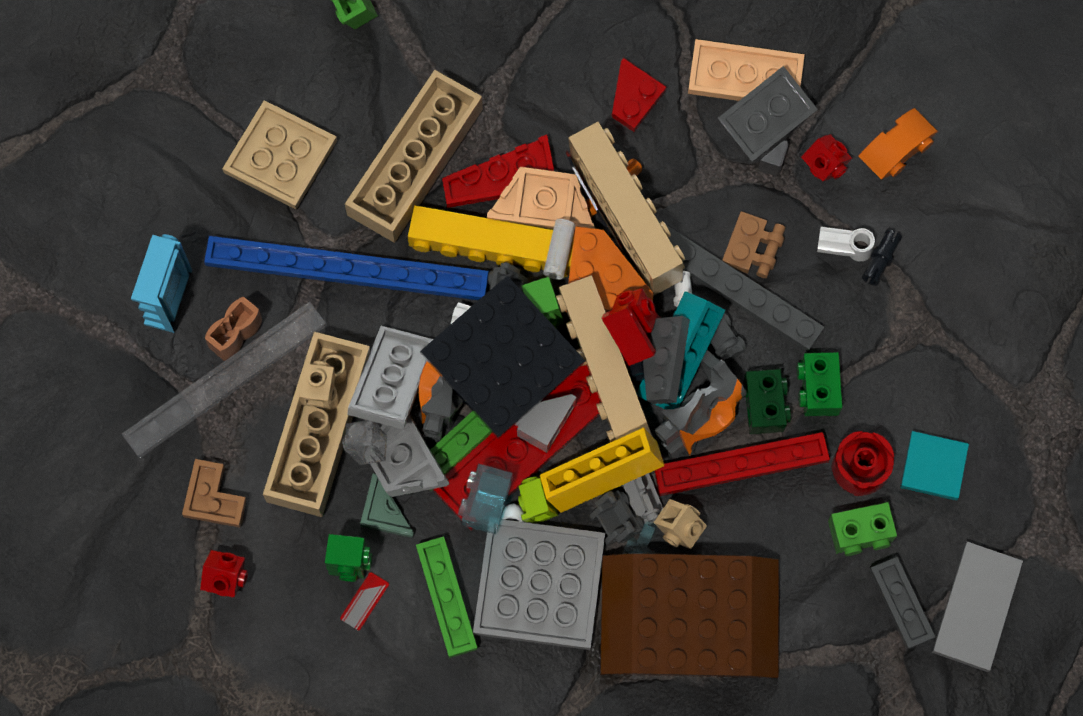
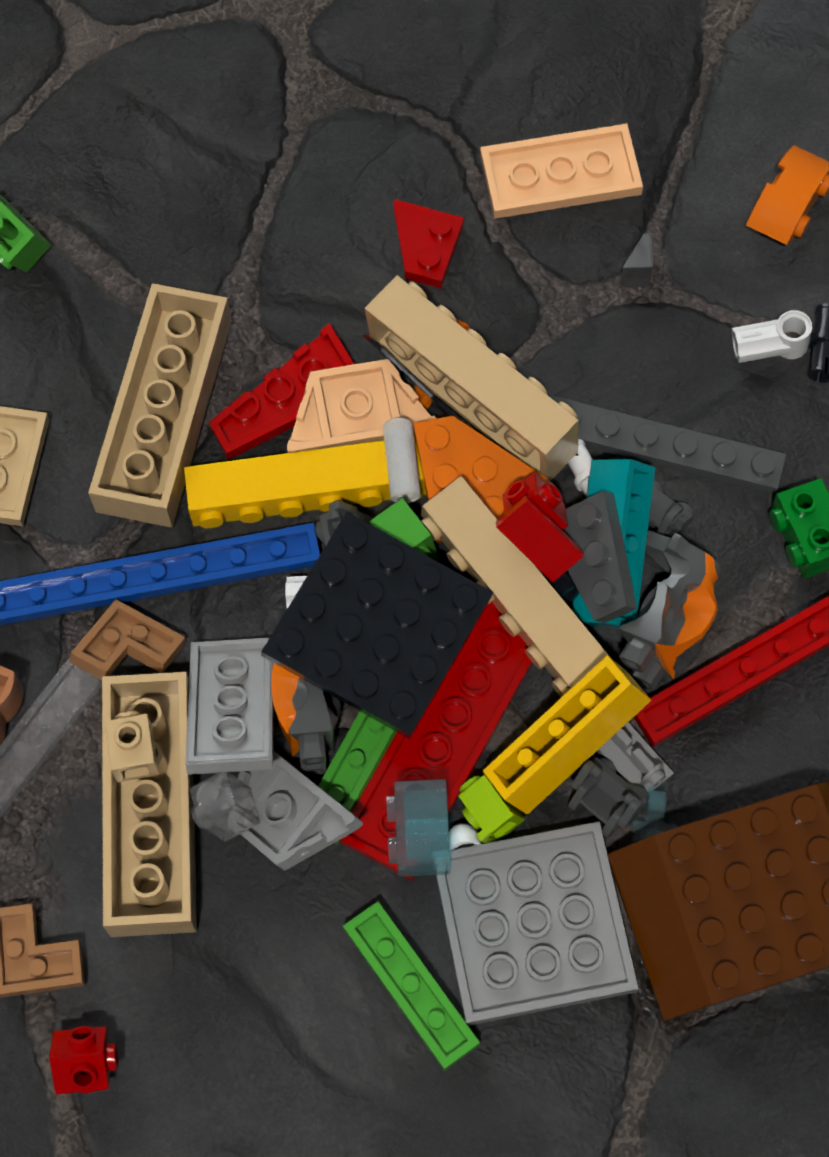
camera: 15 degrees left, 5 degrees down
(341, 306) = (123, 633): none -> medium nougat plate
(347, 557) = (253, 975): green brick -> none
(364, 601) = (296, 1031): sticker -> none
(382, 512) = (280, 897): sand green tile -> none
(545, 421) = (464, 695): light grey slope -> none
(685, 526) = (698, 775): tan brick -> none
(745, 241) = (640, 380): medium nougat plate -> none
(766, 401) = (749, 575): dark green brick -> none
(767, 114) = (609, 208): dark grey plate -> none
(827, 158) = (707, 240): red brick -> none

